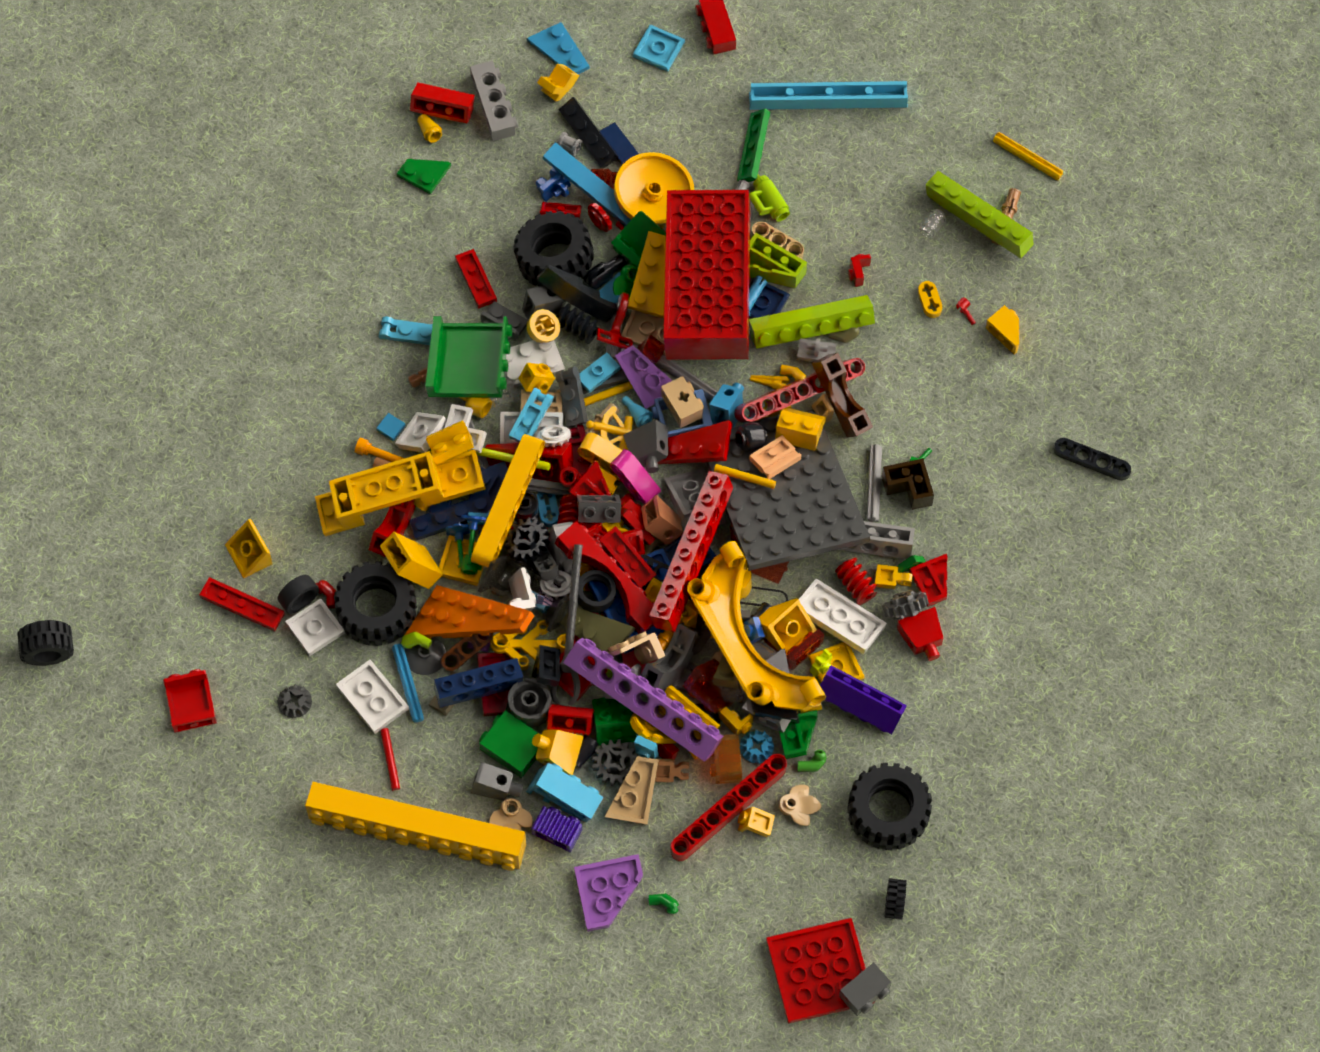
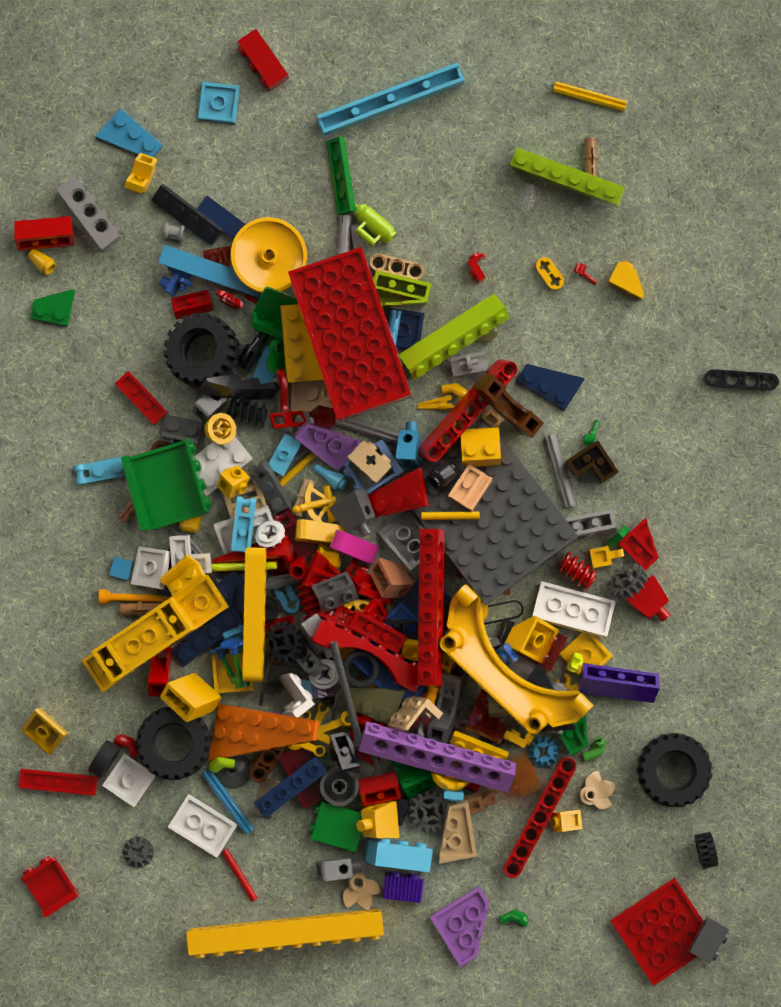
camera: 20 degrees left, 20 degrees up
(894, 400) = (550, 384): none -> dark blue wing

